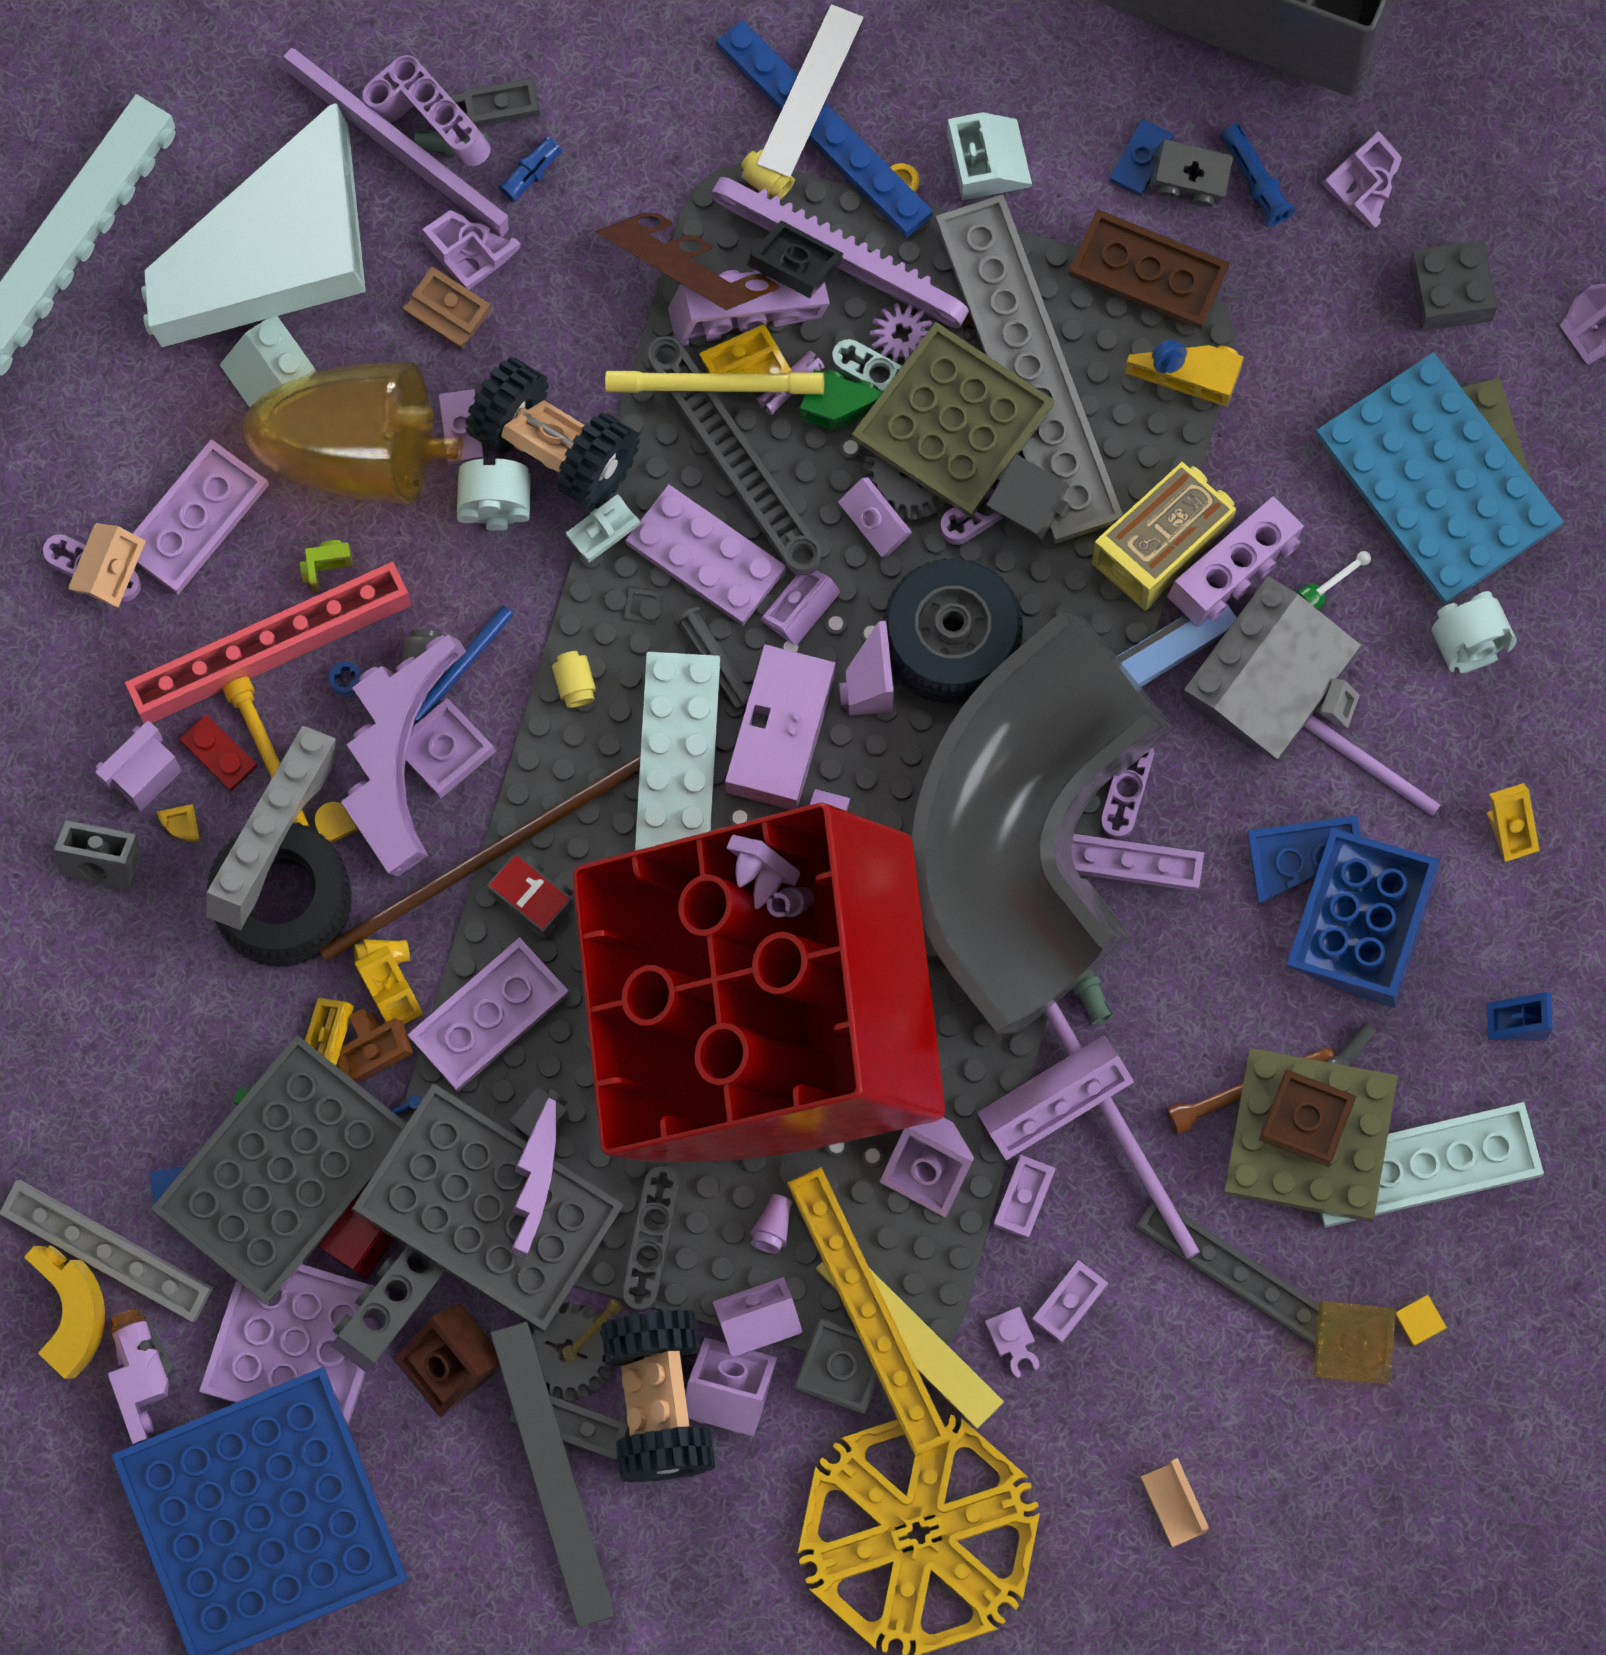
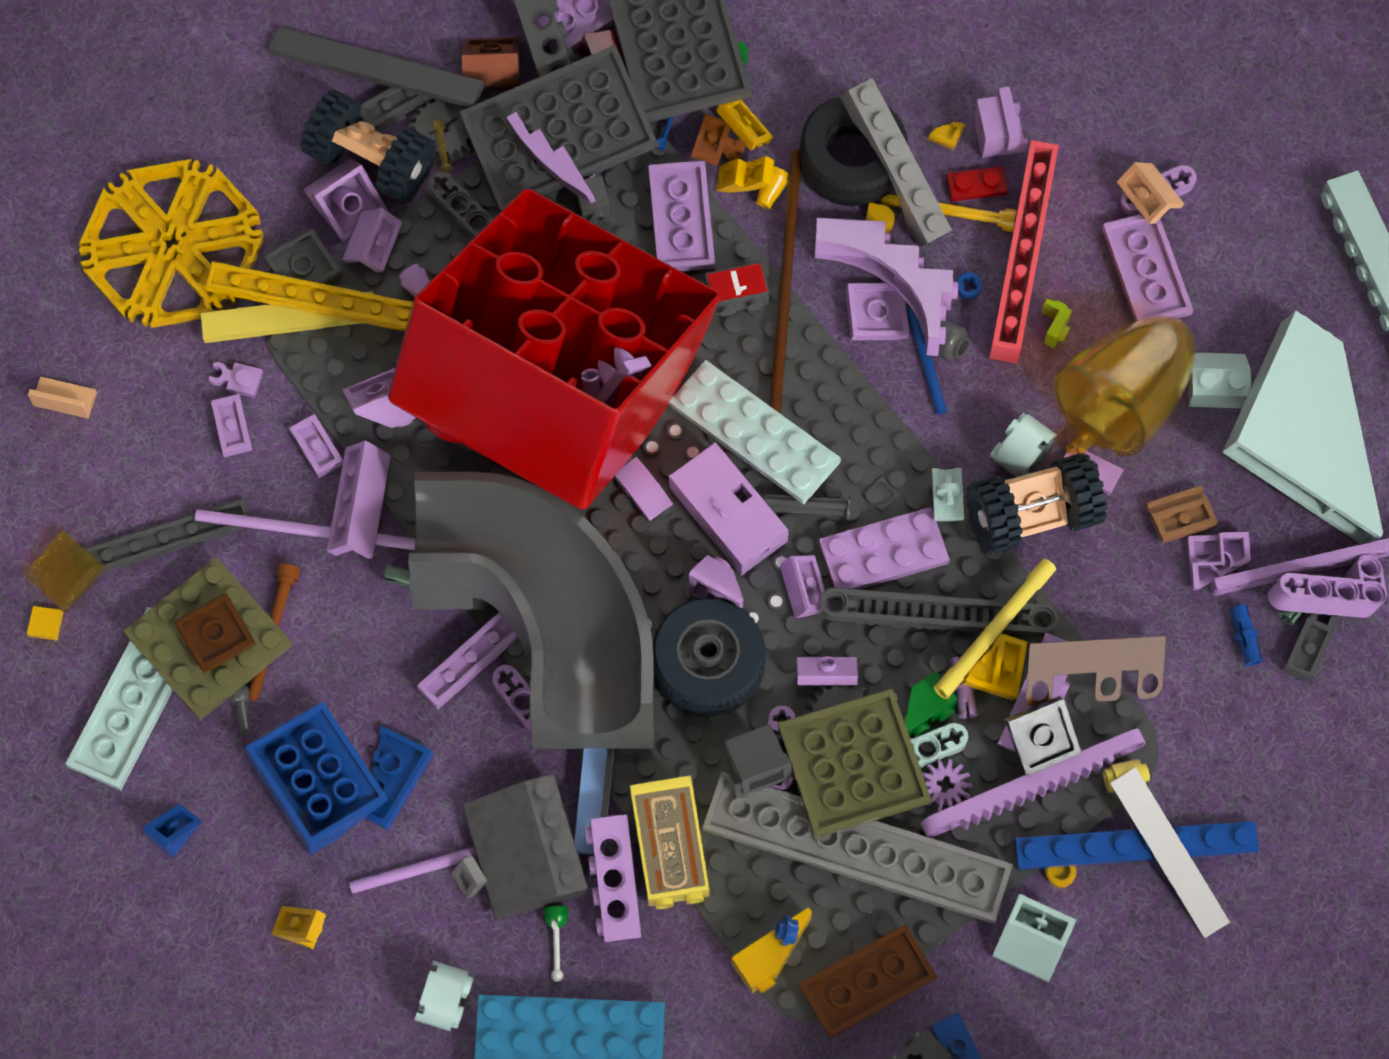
camera: 125 degrees right, 5 degrees down
(97, 854) = (960, 68): dark grey brick -> none
(574, 679) = (859, 410): light yellow brick -> none

